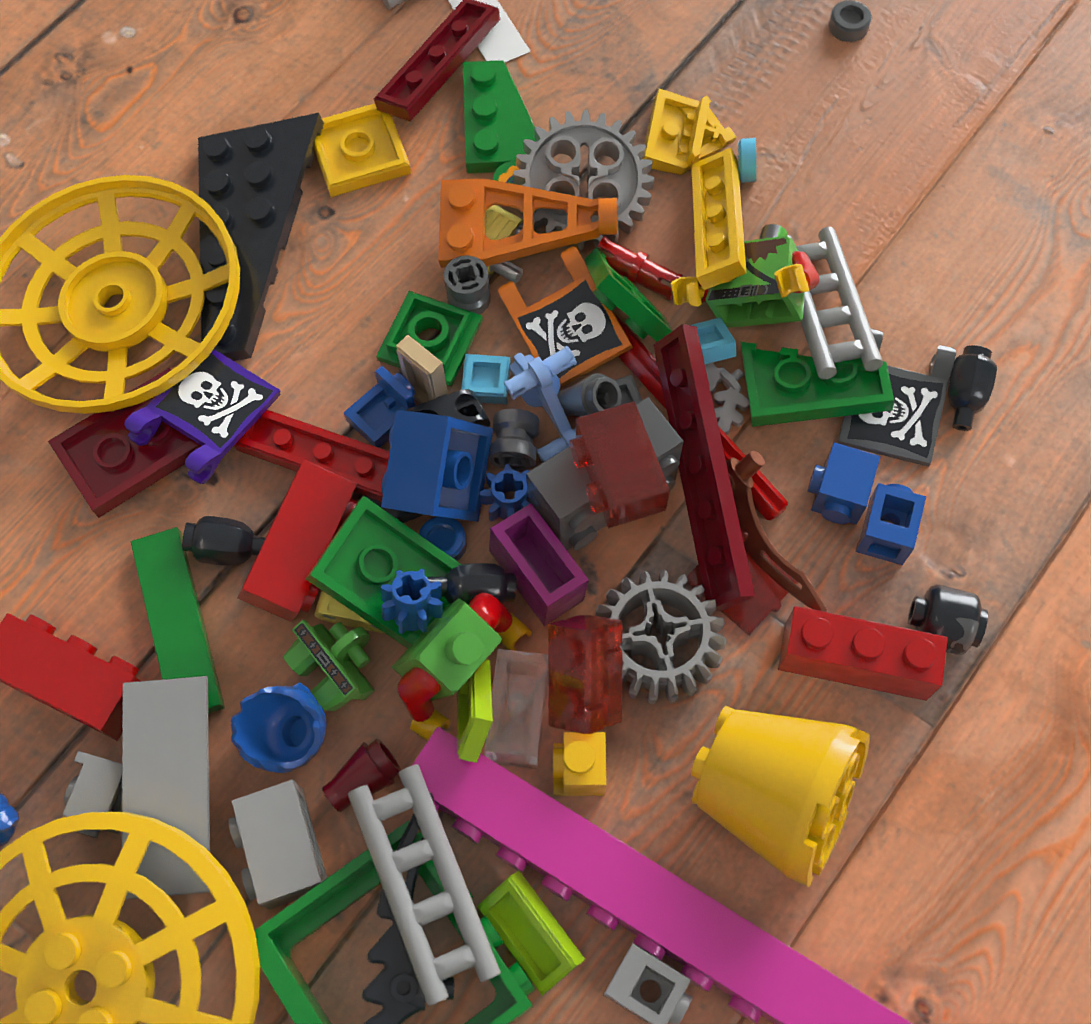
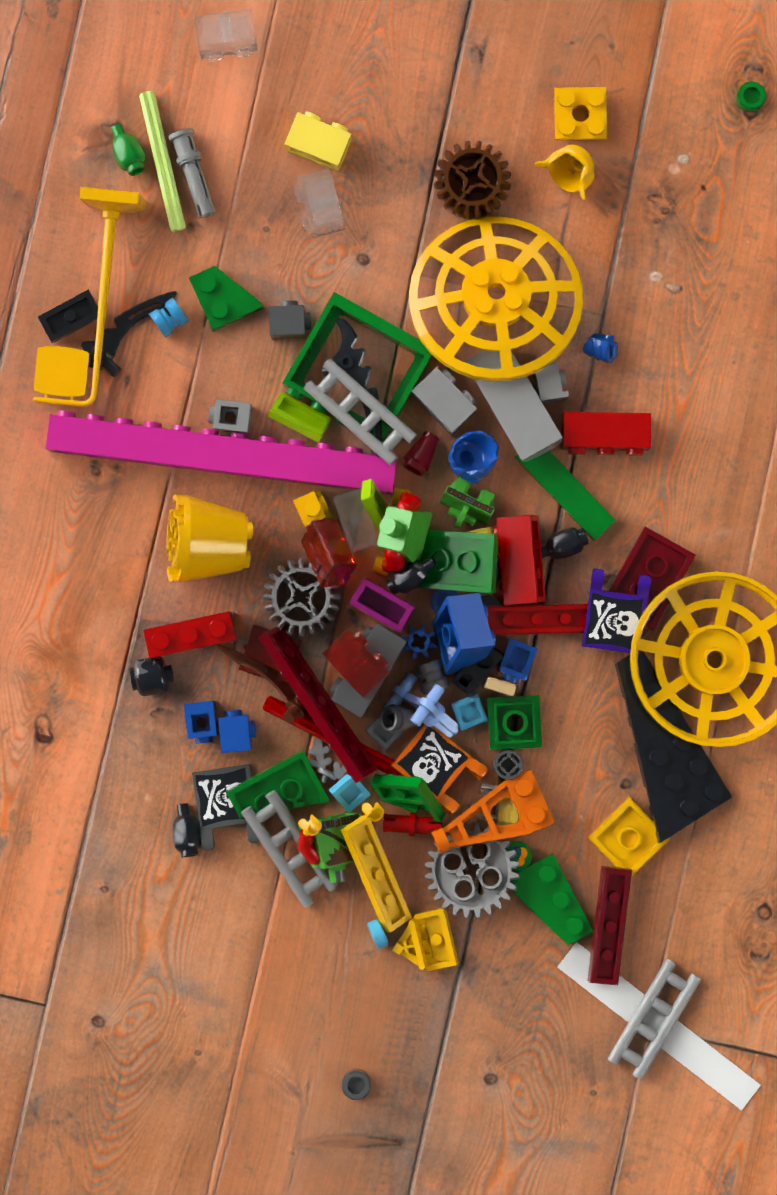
camera: 155 degrees right, 20 degrees up
(411, 601) = (435, 538): blue gear -> none

